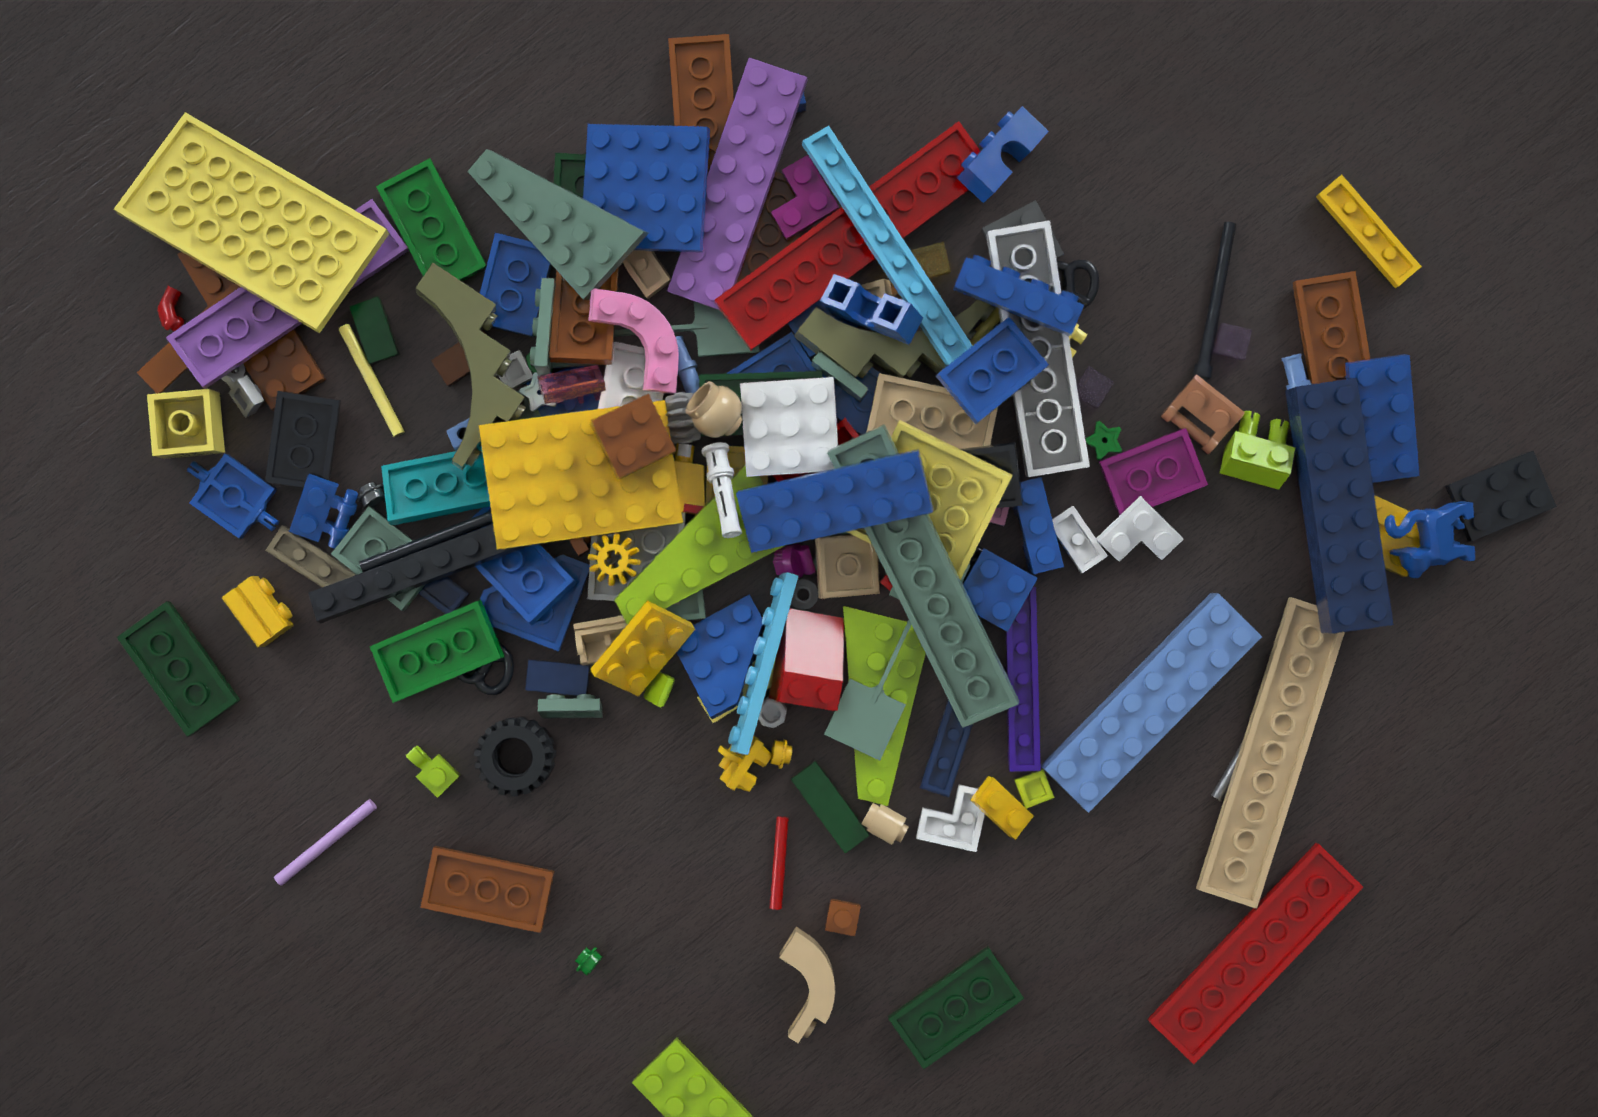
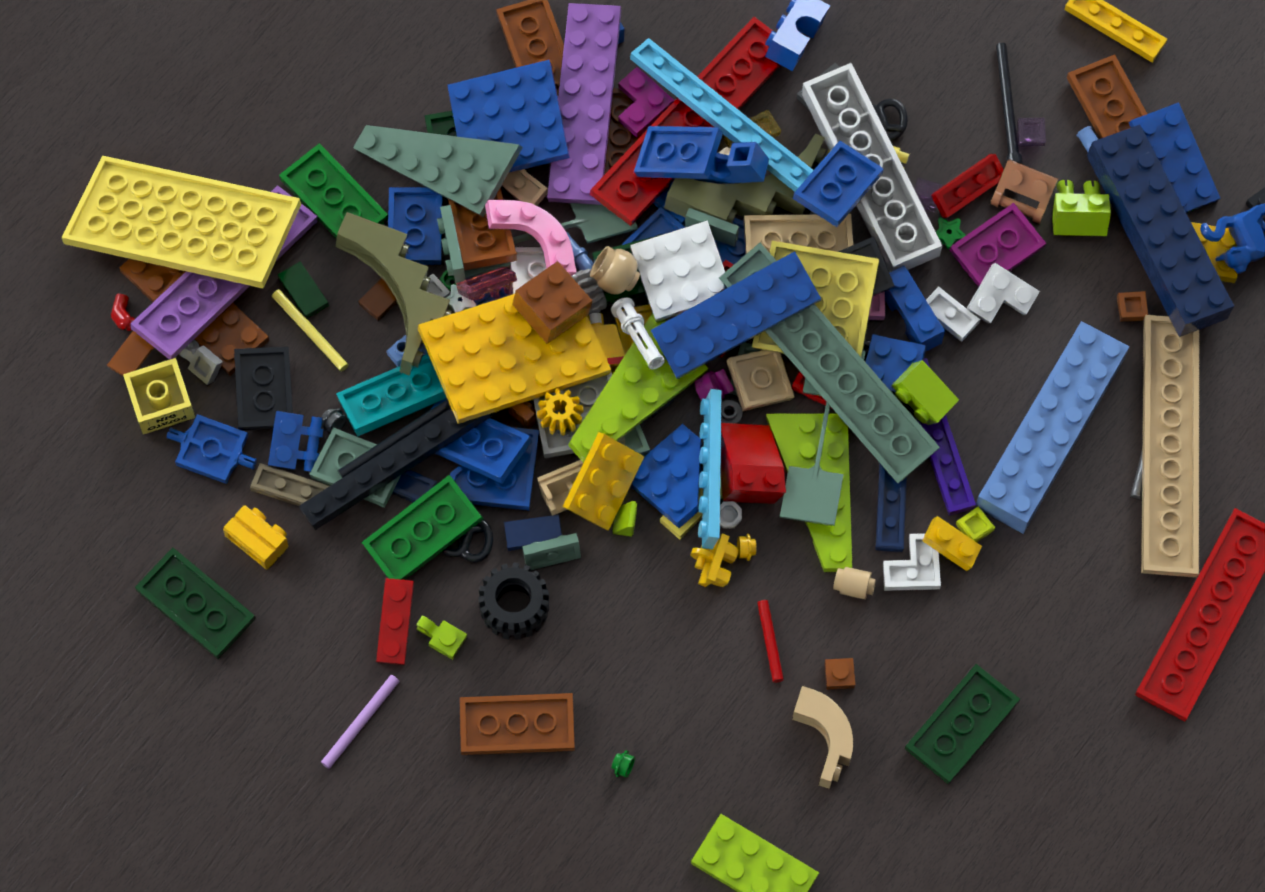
camera: 15 degrees left, 20 degrees down
(385, 744) = (395, 621): none -> red plate
(822, 284) = (678, 152): none -> blue plate
(830, 807) = (802, 583): dark green tile -> none
(1017, 296) = (842, 122): blue brick -> none
(1020, 638) = (924, 393): none -> lime brick
(1142, 392) = (968, 185): none -> red plate
(1281, 580) = (1132, 306): none -> dark orange plate

